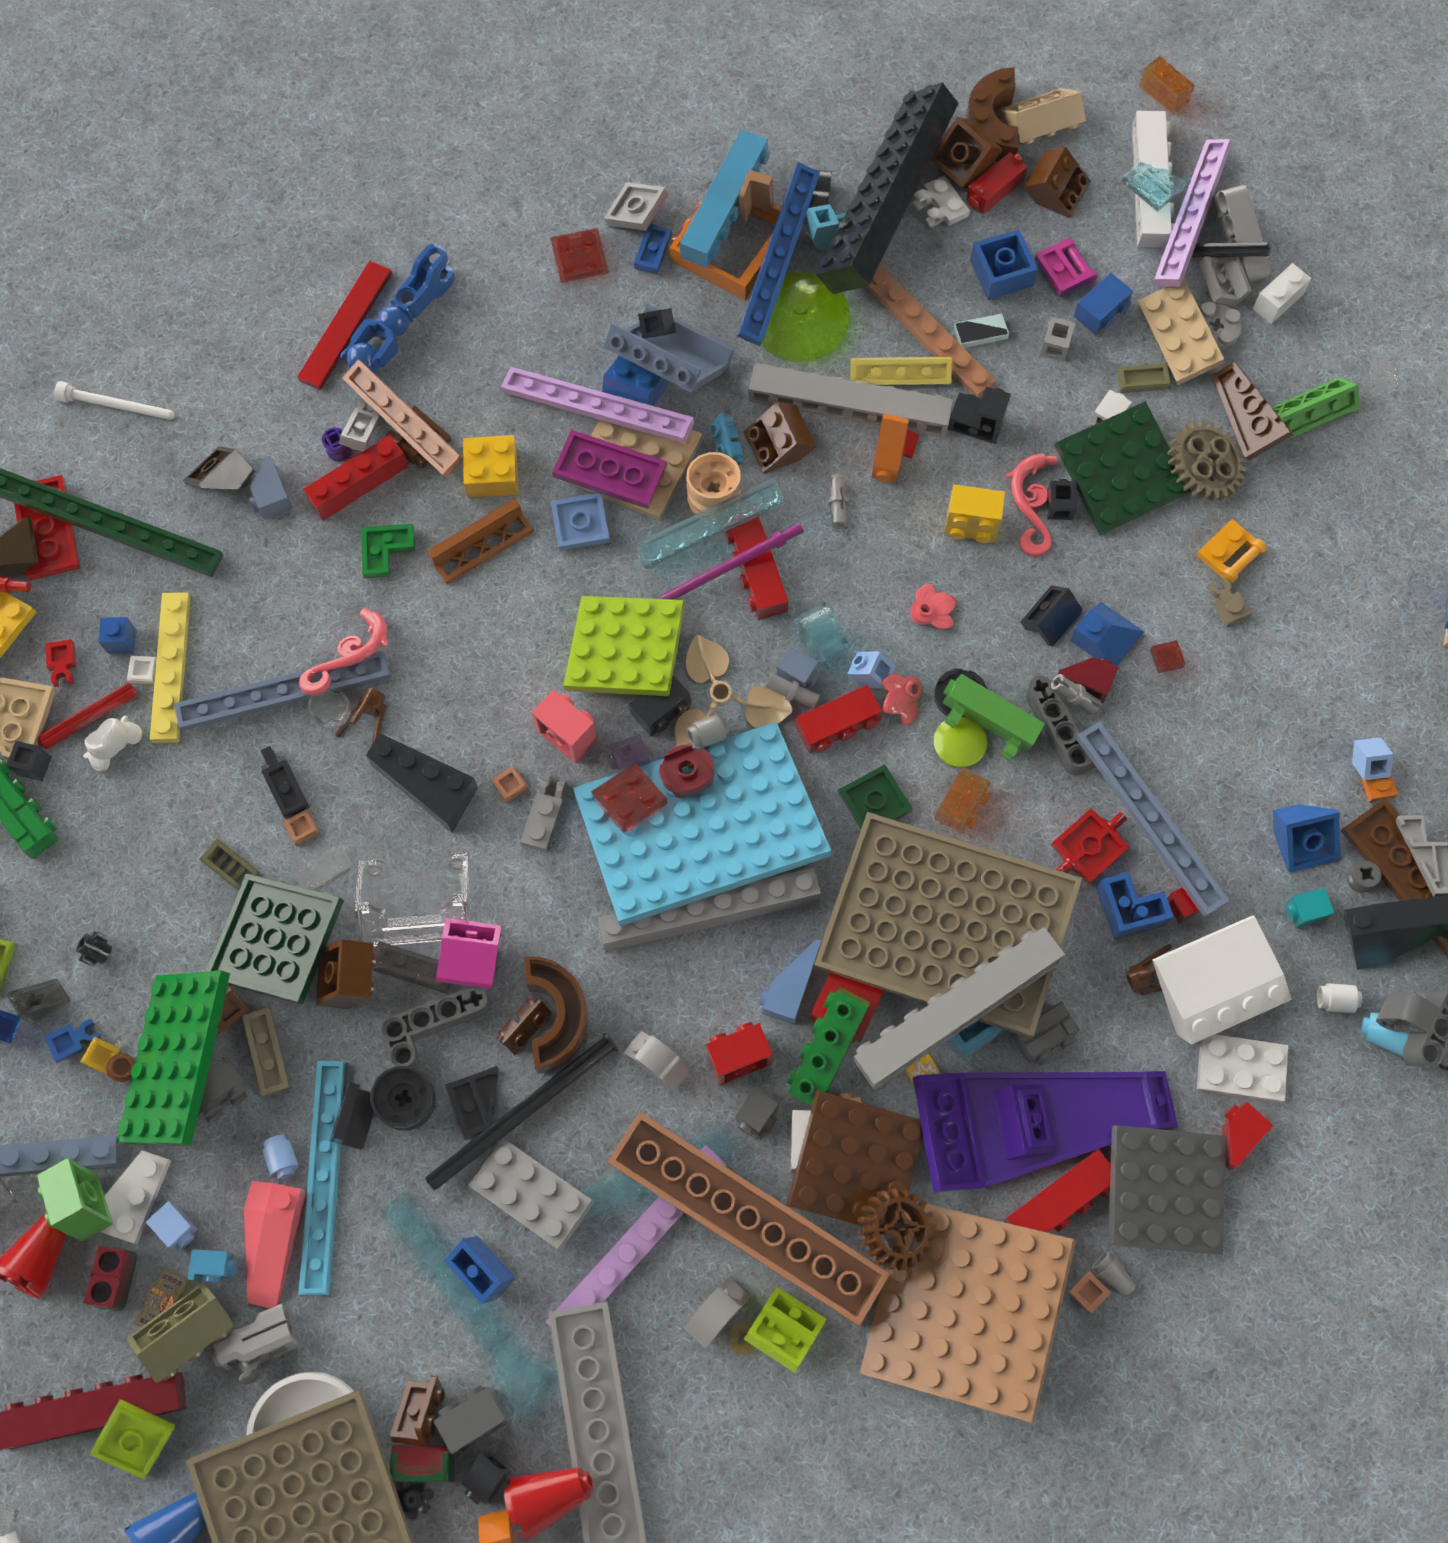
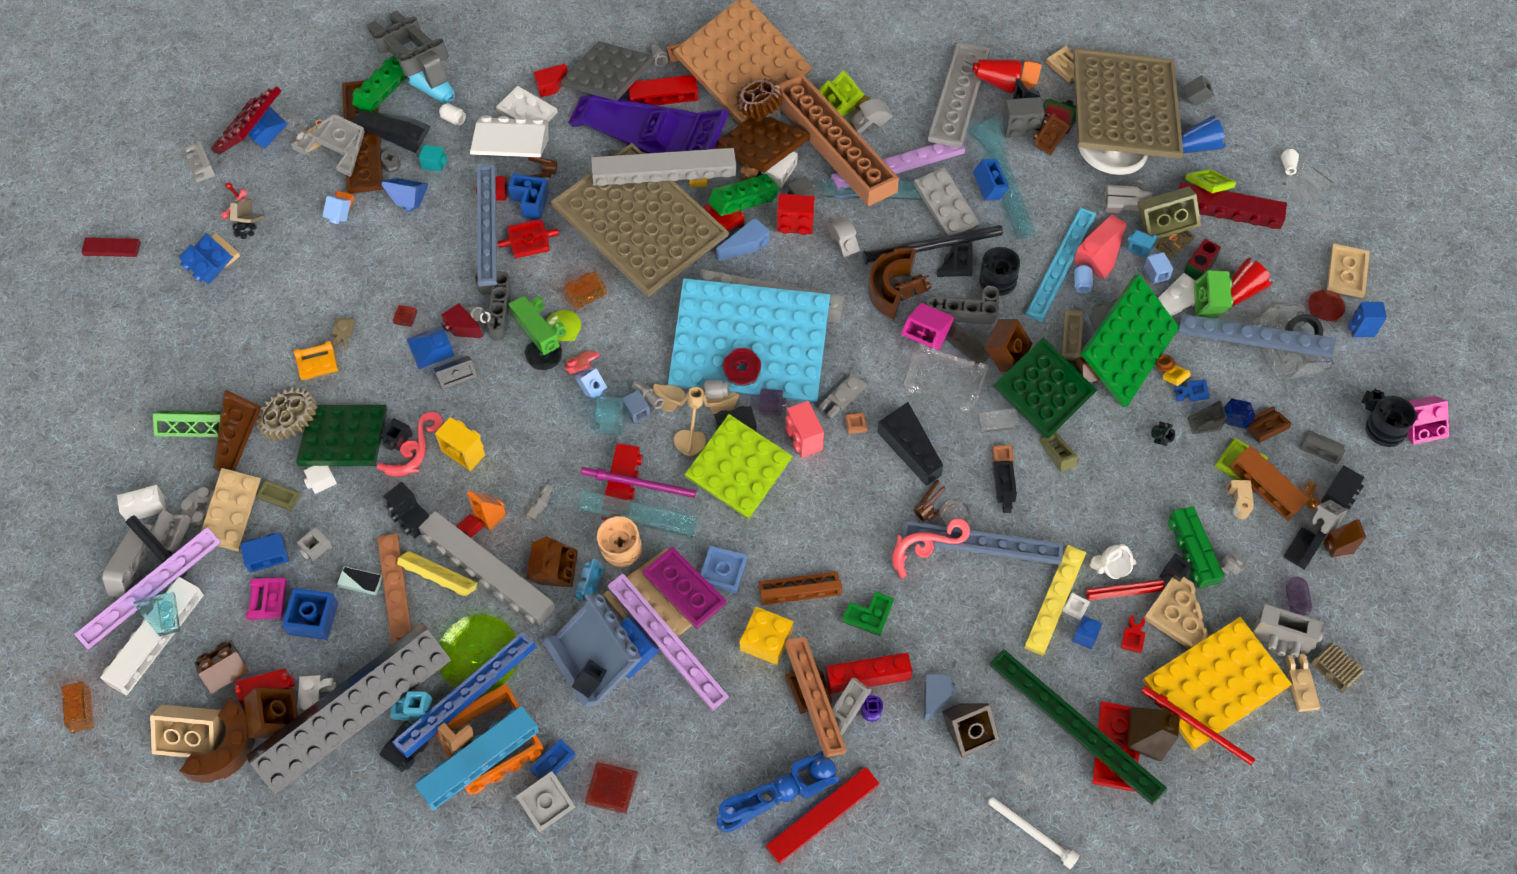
camera: 155 degrees left, 10 degrees down
(353, 1118) = (1033, 280): black panel -> none
(629, 797) = (786, 368): clear red plate -> none
(838, 719) = (628, 366): red brick -> none
(875, 794) = (636, 314): dark green plate -> none
(936, 608) = (523, 409): coral plate -> none

